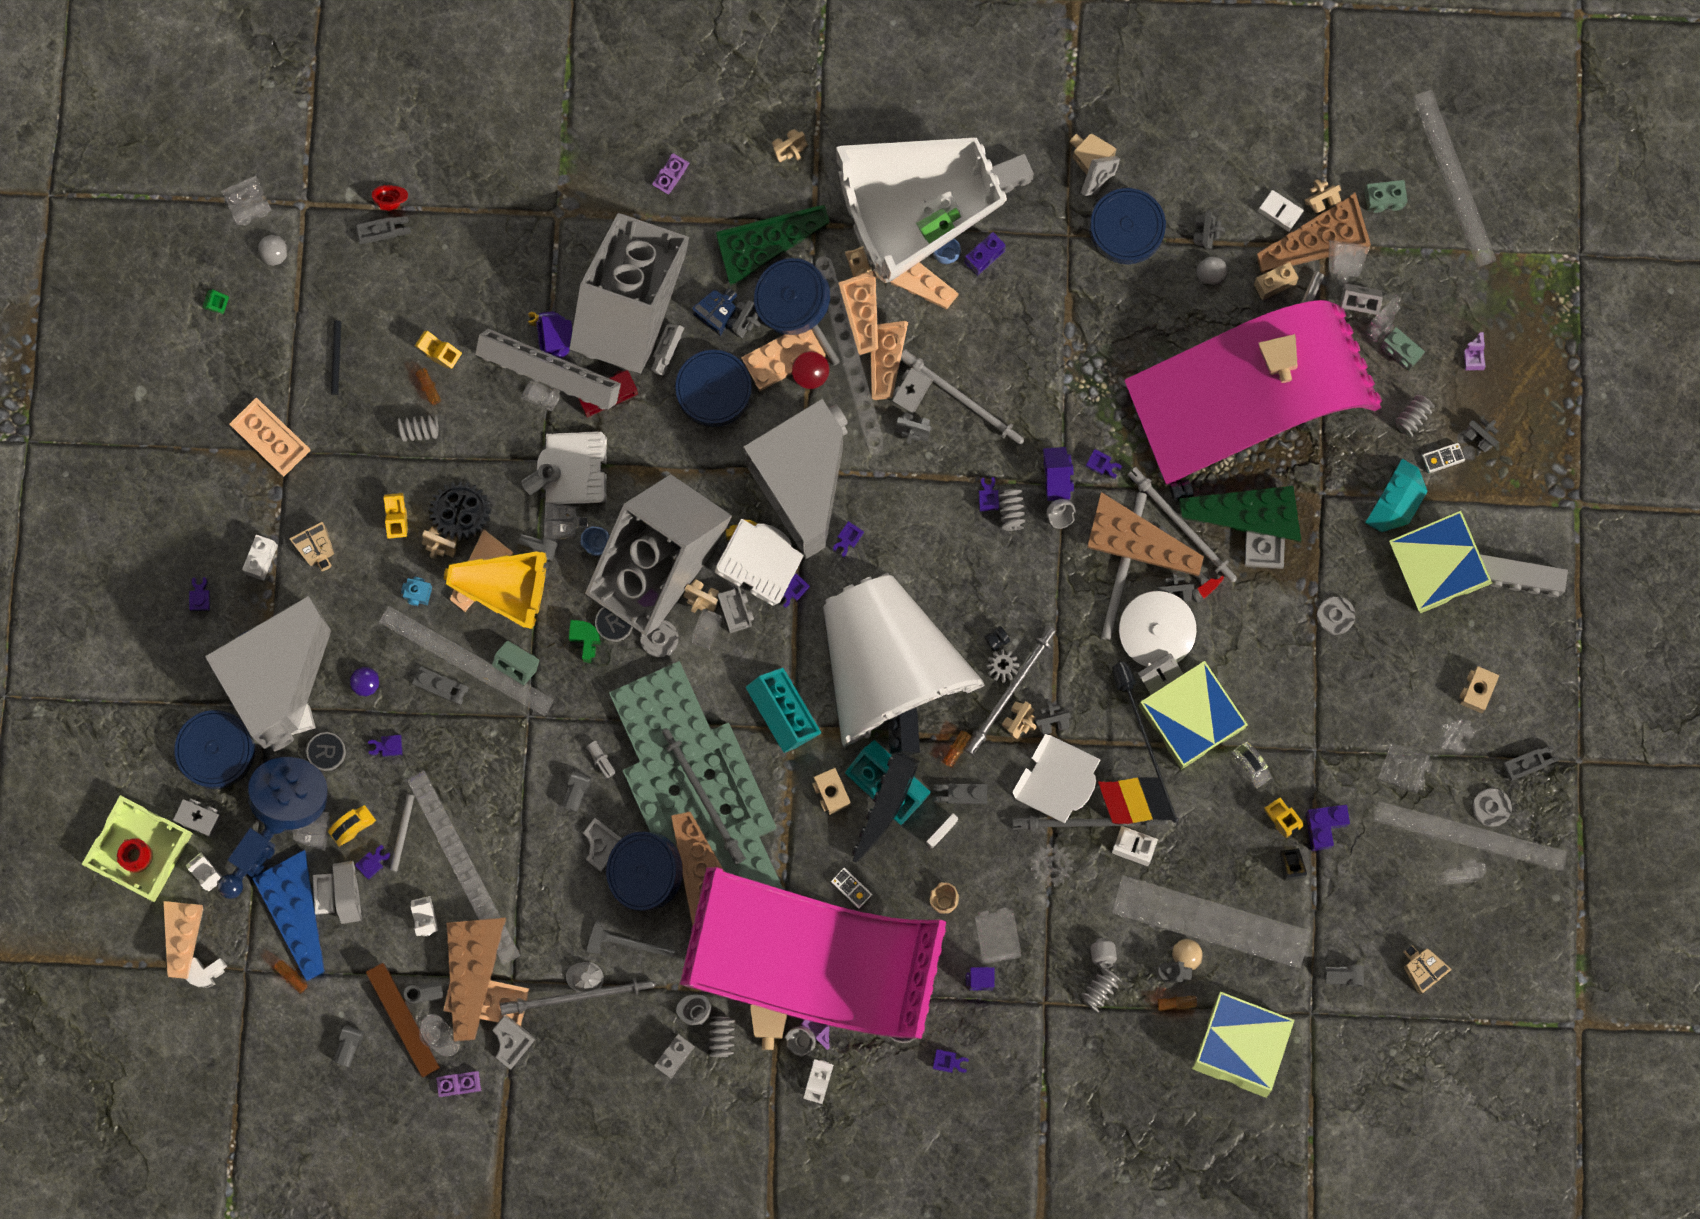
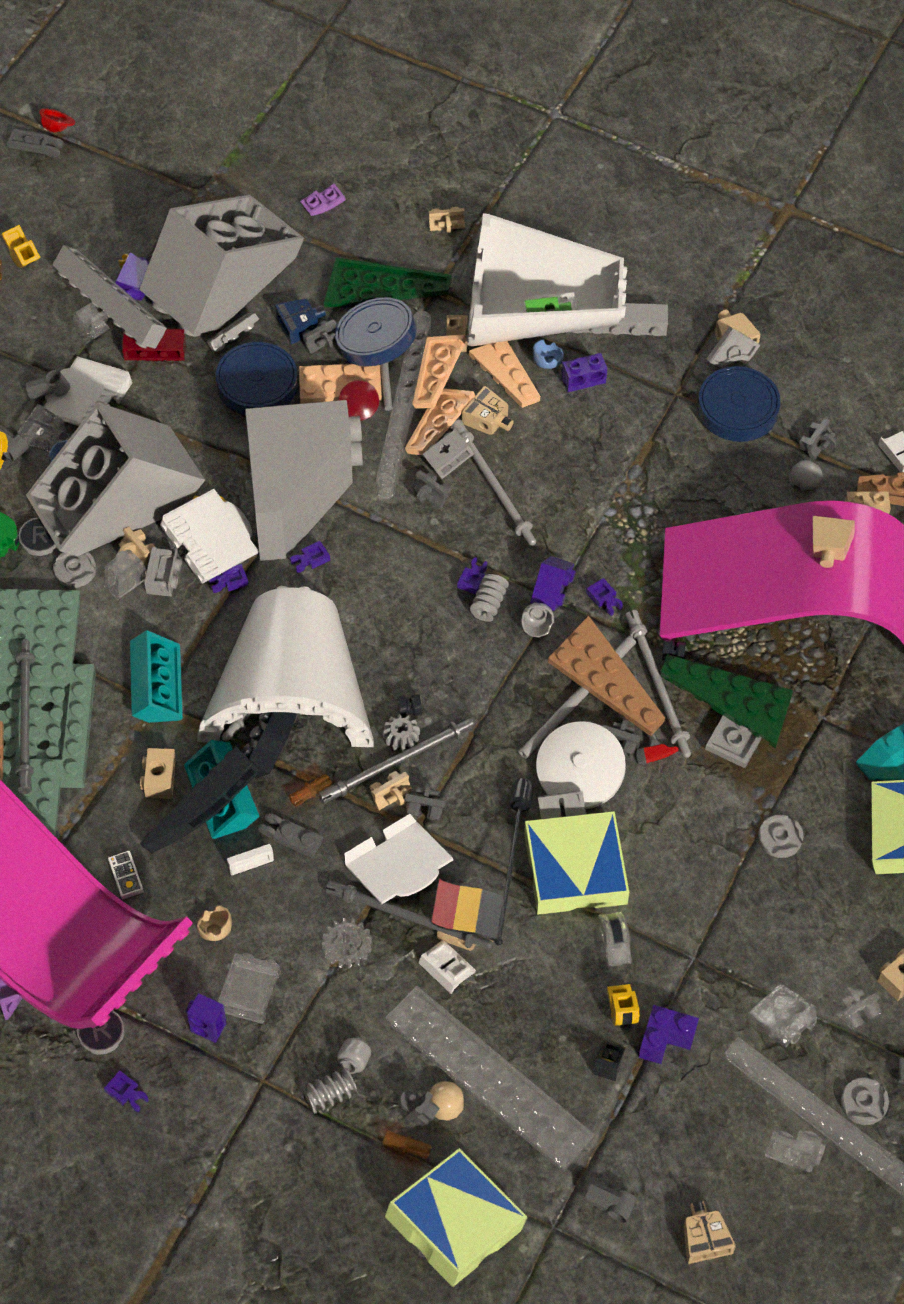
camera: 25 degrees right, 20 degrees down
(923, 331) = (487, 412): none -> tan torso

